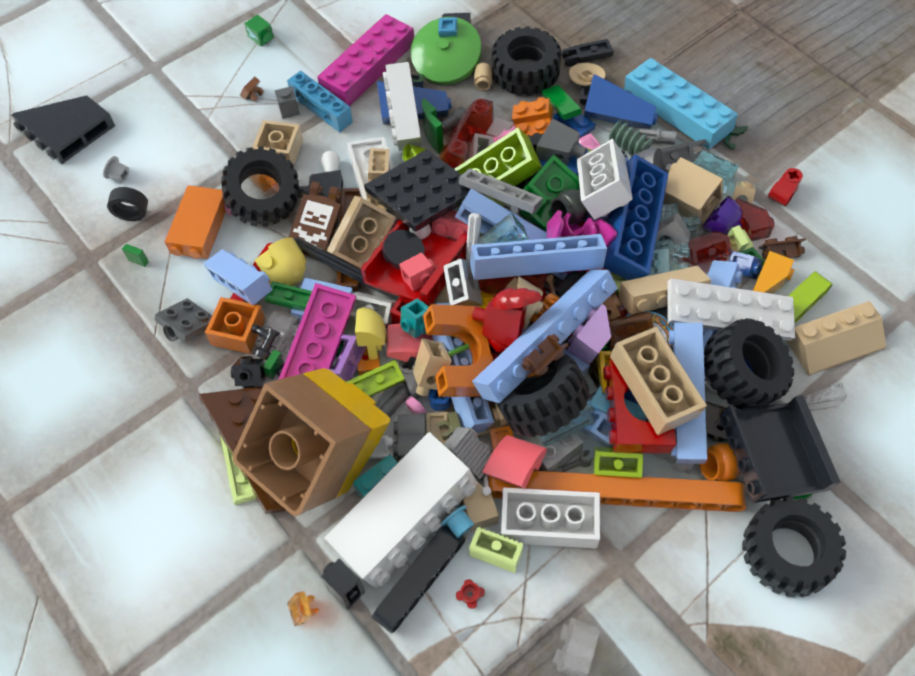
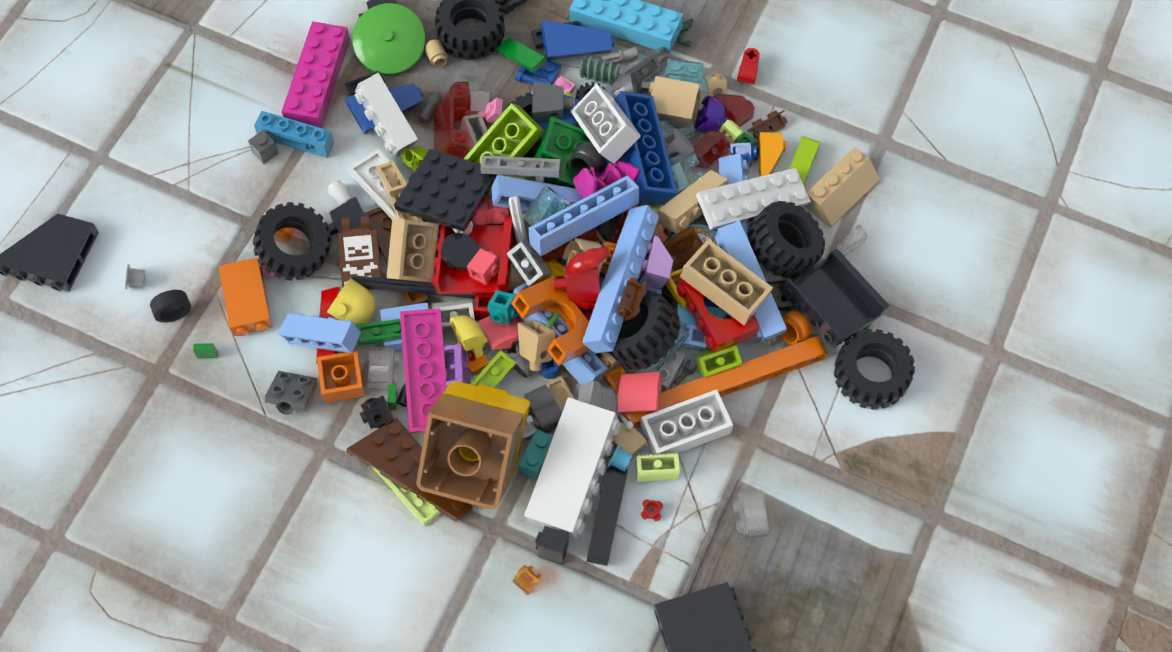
camera: 30 degrees left, 5 degrees up
(251, 88) = (217, 146): dark orange tile -> none
(259, 30) = (189, 80): green brick -> none
(269, 336) = (380, 374): black piece -> none
(282, 137) = (278, 188): tan brick -> none
(395, 400) = (514, 382): dark grey piece -> none
(414, 406) = (533, 382): bright pink tile -> none
(432, 126) = (420, 124): green slope -> none
(447, 27) = (383, 17): dark azure tile -> none
(452, 424) = (573, 384): olive tile -> none
(533, 116) = (504, 80): orange plate -> none
(583, 73) = (530, 17): tan dish -> none

